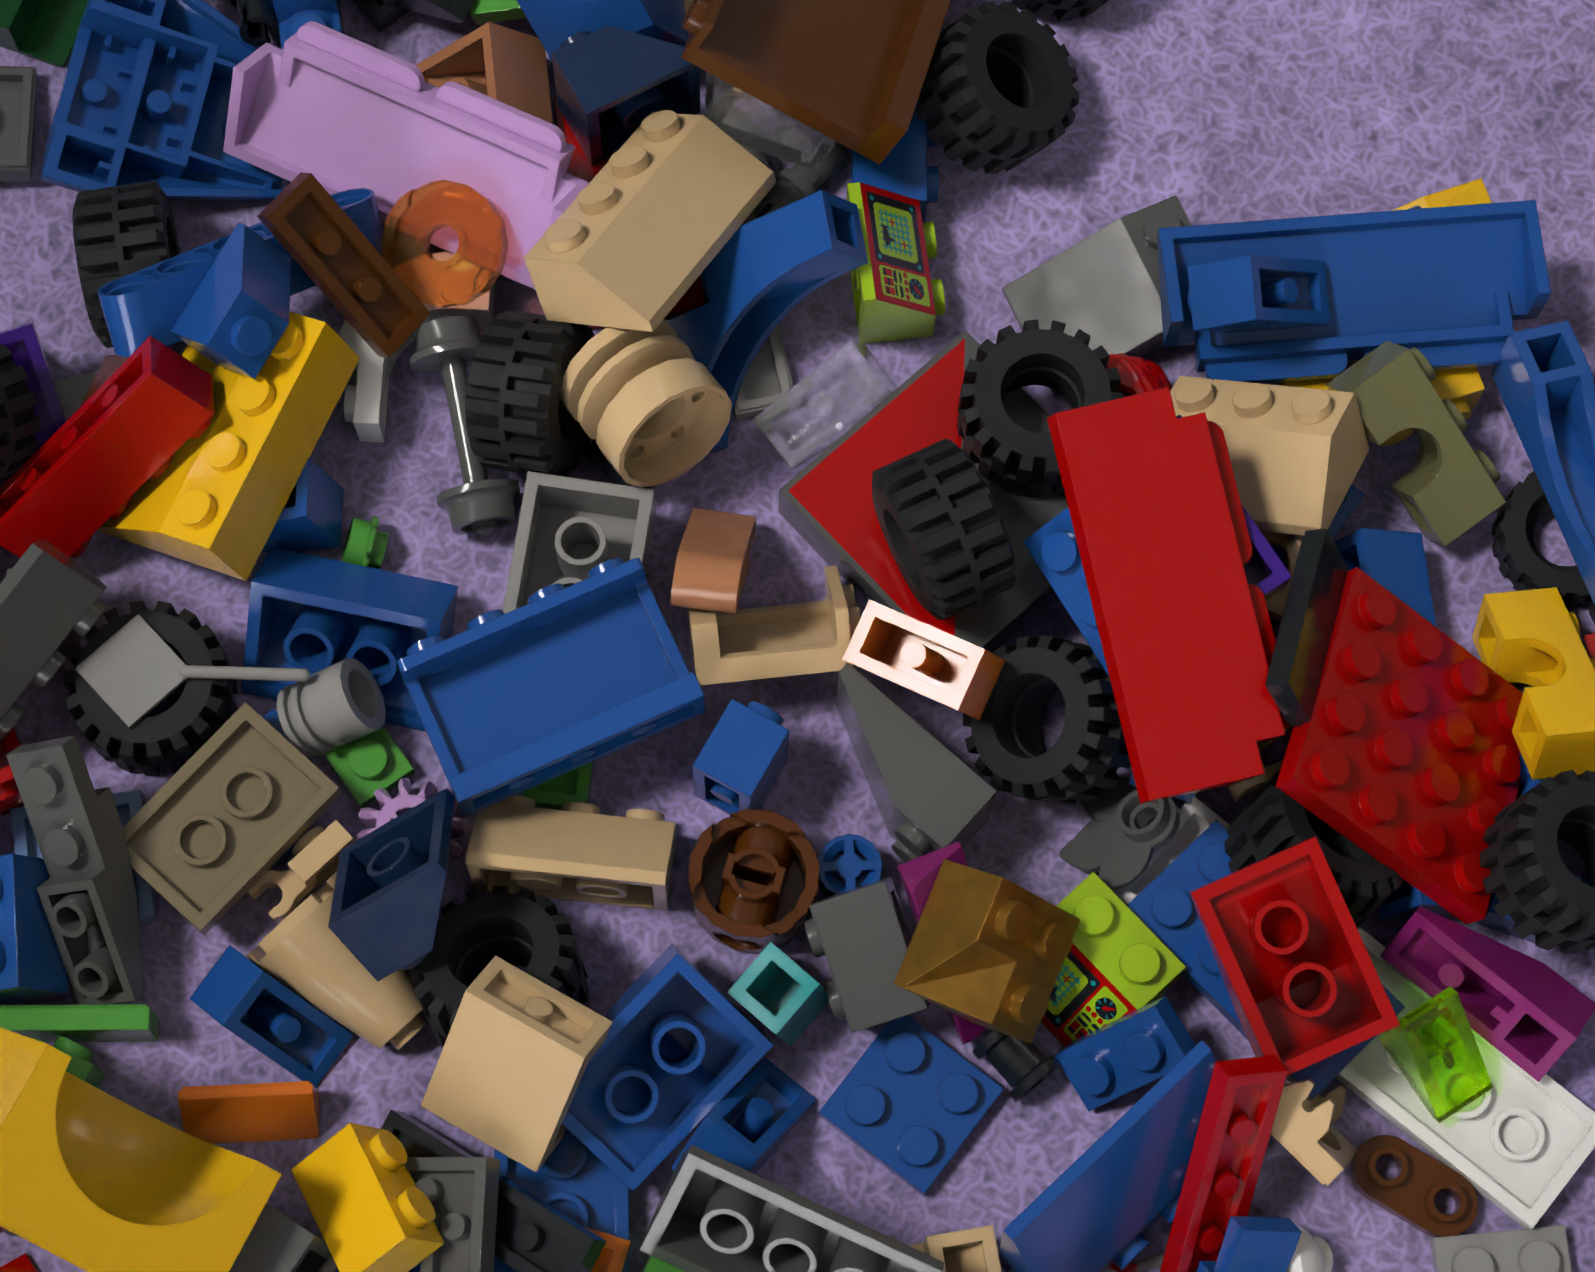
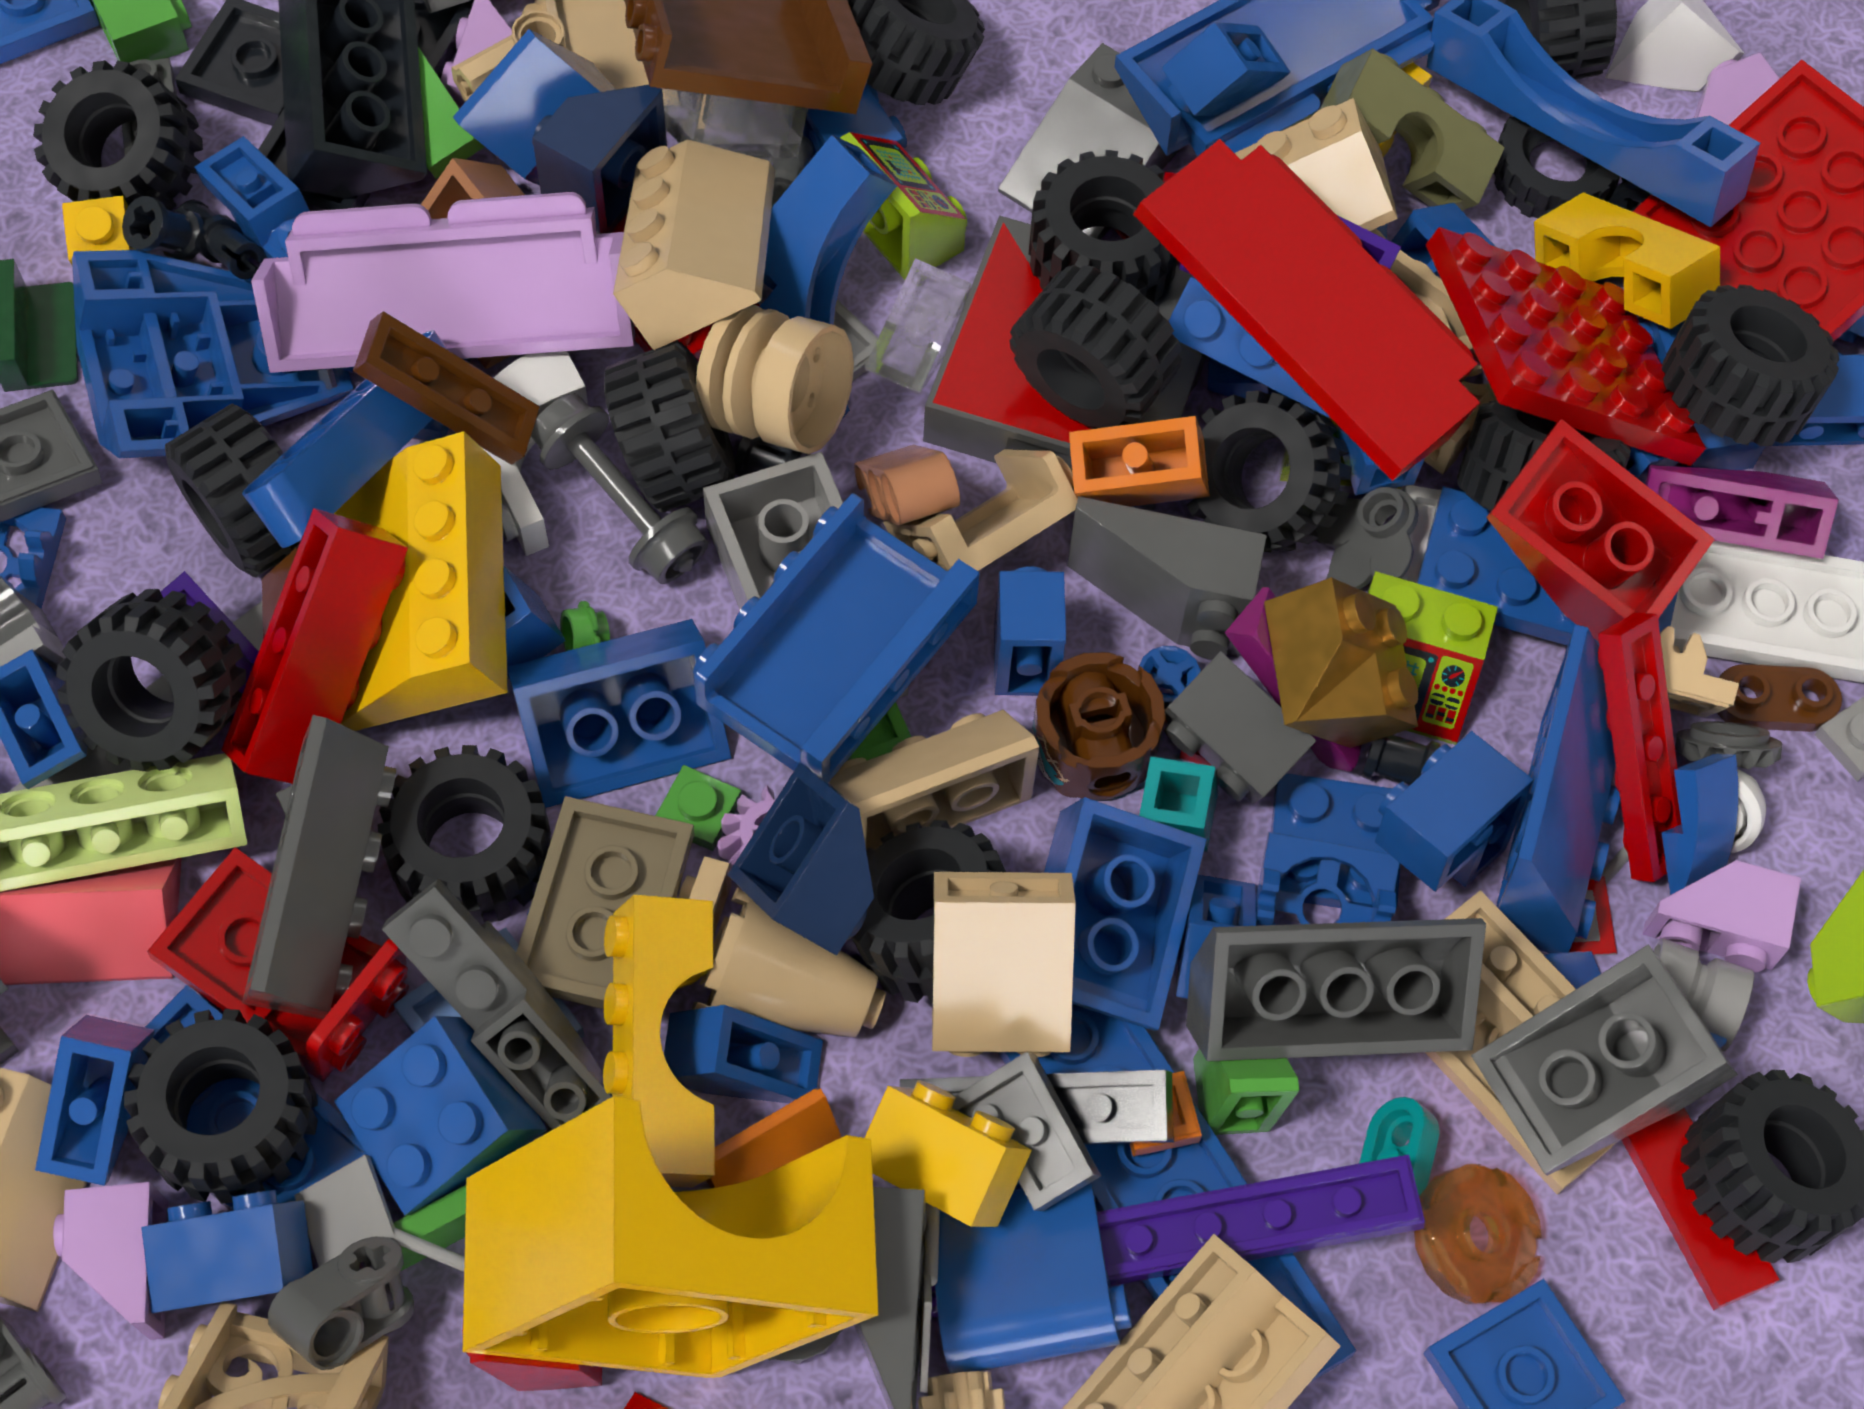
camera: 30 degrees left, 10 degrees down
(140, 670) = (454, 814): light grey piece -> none
(149, 1048) = (657, 950): none -> yellow arch
(239, 304) = (377, 455): blue slope -> none
(331, 708) = (642, 767): light grey piece -> none
(480, 248) = (525, 307): clear orange tile -> none
(850, 1092) = (1286, 851): none -> blue piece
(1005, 1141) = (1454, 813): none -> blue brick
(1125, 1053) = (1497, 694): blue plate -> none
(1306, 626) = (1438, 280): black tile -> none
(1326, 1213) = (1749, 743): none -> dark grey gear
(1439, 1055) = (1737, 573): clear neon green slope -> none

